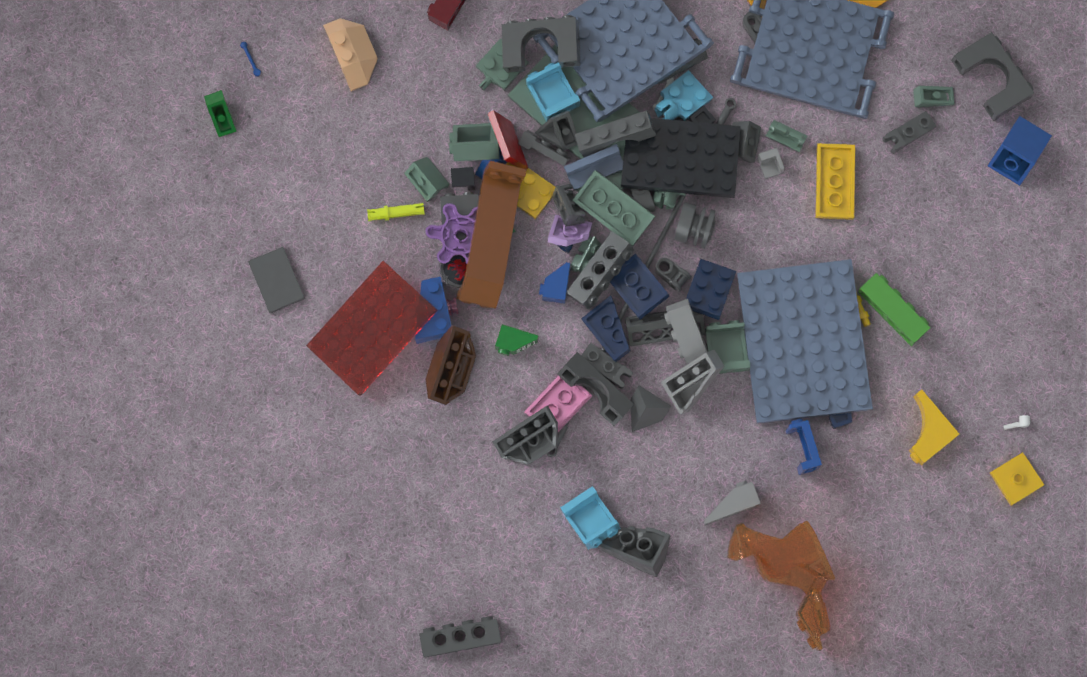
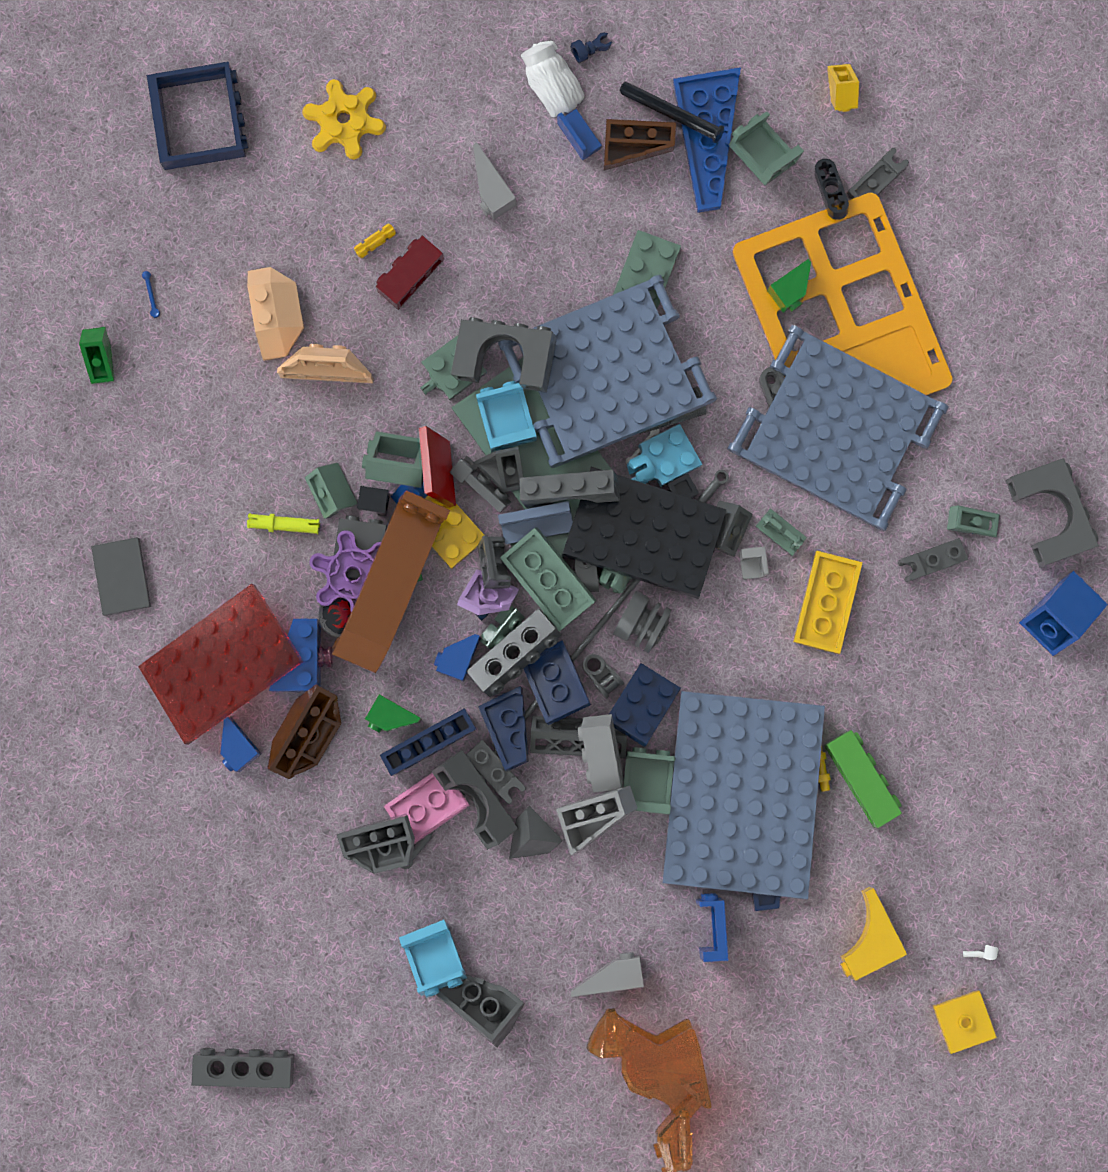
camera: 10 degrees right, 5 degrees up
(399, 391) = (236, 747): none -> blue slope
(401, 83) = (325, 364): none -> light nougat wedge
(549, 353) = (428, 742): none -> dark blue brick

